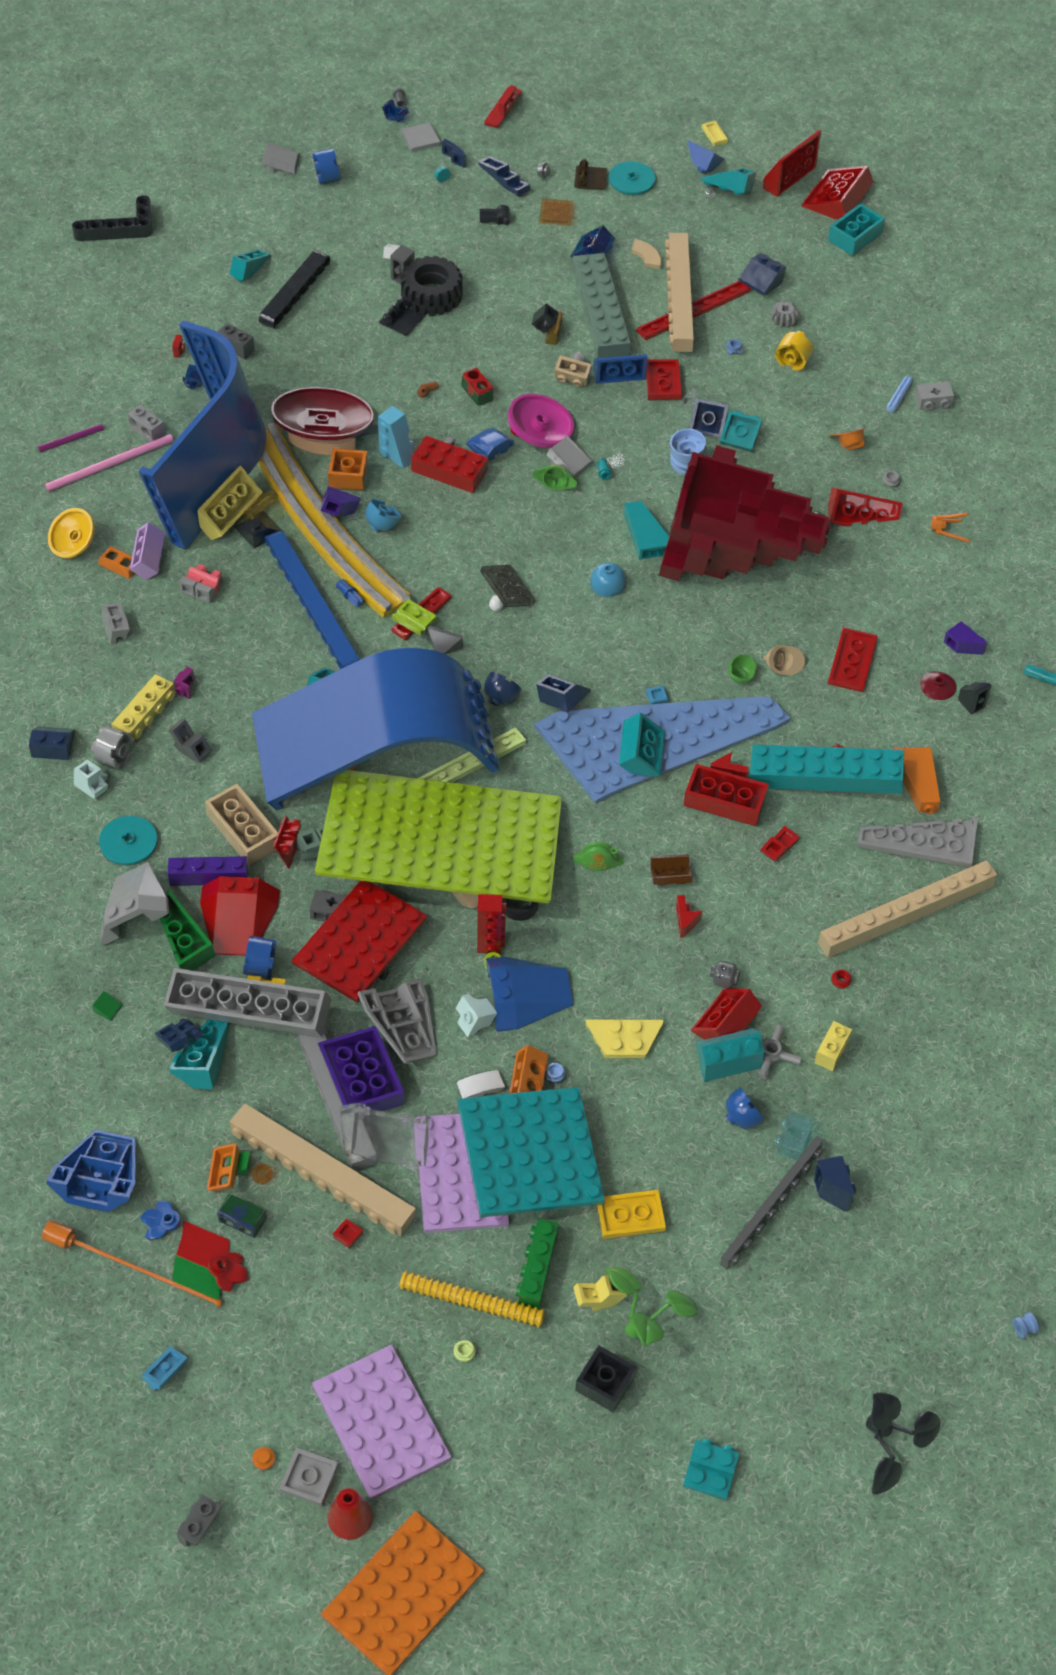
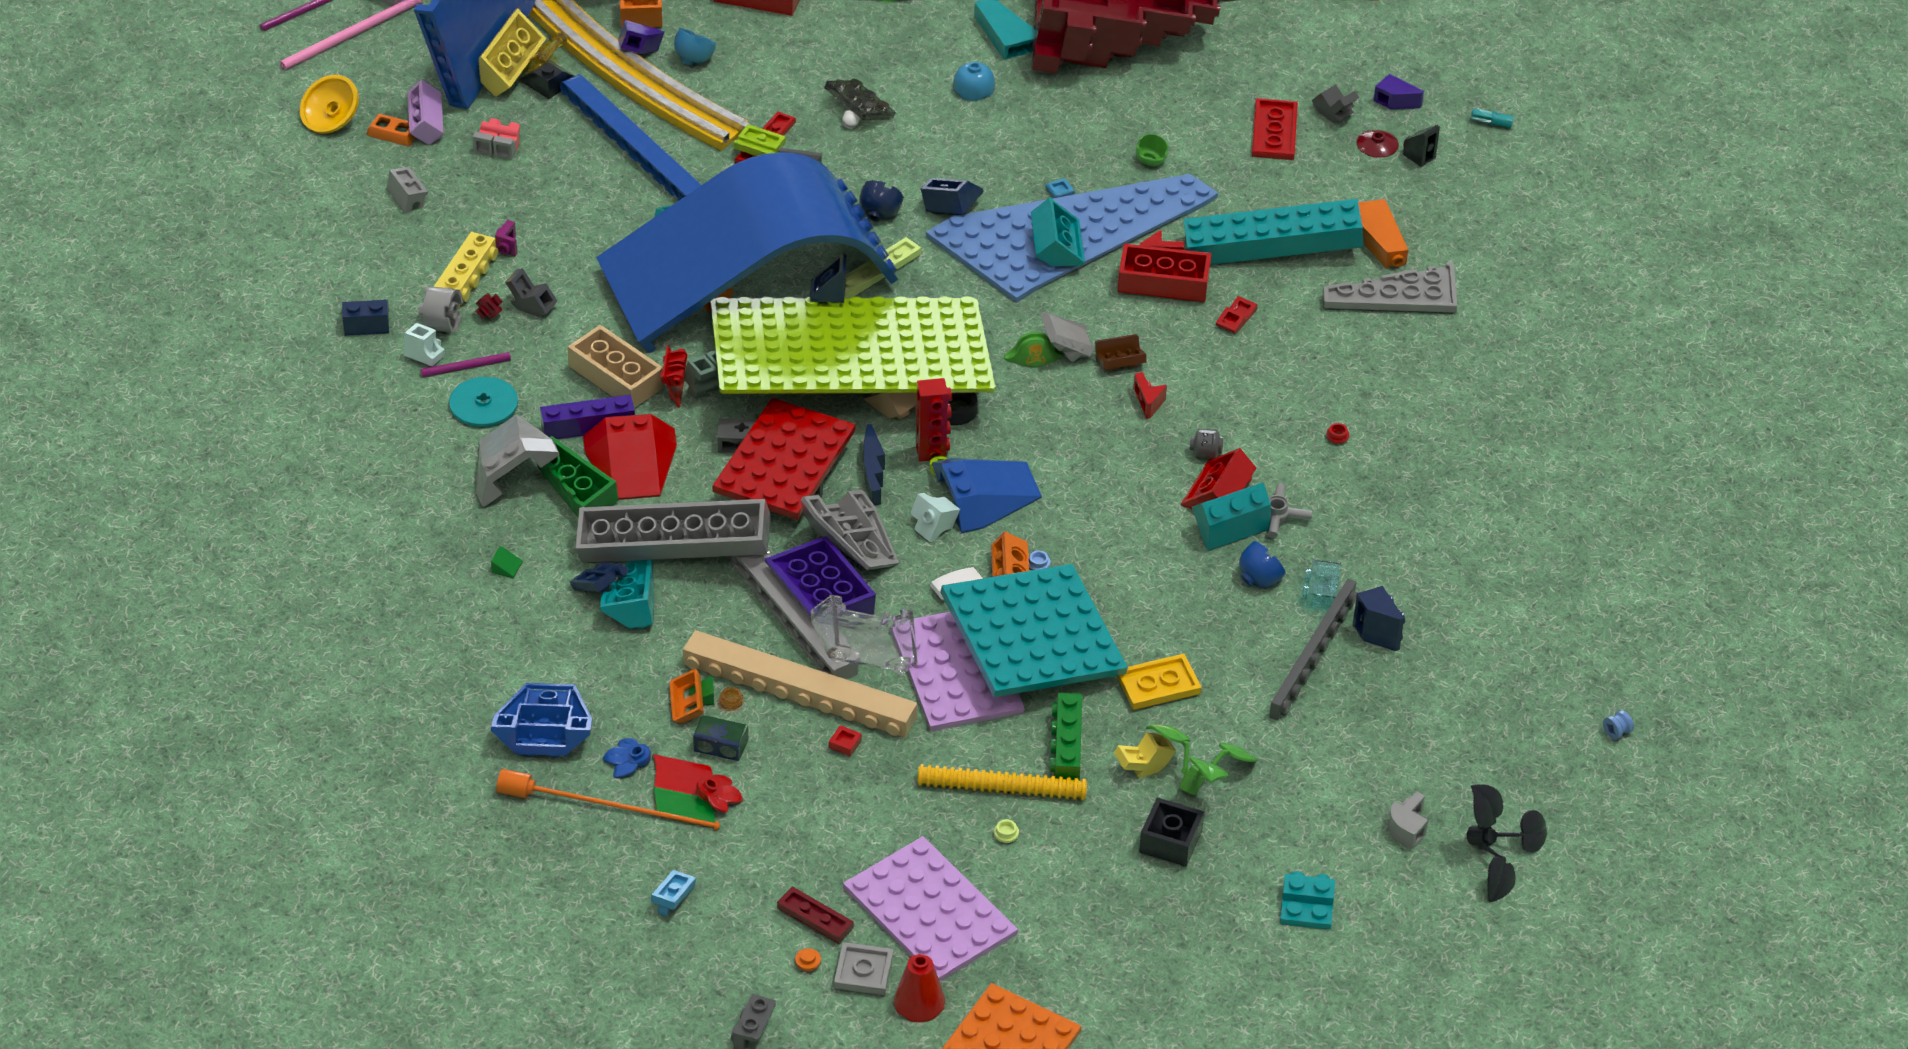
camera: 10 degrees left, 10 degrees down
(122, 801) = (466, 364): none -> magenta bar
(153, 747) = (489, 306): none -> dark red gear
(259, 957) = (672, 485): blue brick -> none
(280, 1412) = (815, 915): none -> dark red plate
(349, 593) = (675, 129): blue axle -> none
(435, 950) = (873, 465): none -> dark blue slope
(438, 768) = (830, 282): none -> dark blue slope
(624, 1037) = (1107, 519): light yellow wing -> none
(628, 848) = (1067, 336): none -> light grey slope
(786, 659) = (1199, 133): tan piece -> none
(813, 1399) = (1406, 823): none -> light grey brick
(833, 1046) = (1344, 495): light yellow brick -> none
(907, 643) = (1334, 105): none -> dark grey brick
(907, 909) = (1395, 357): tan brick -> none

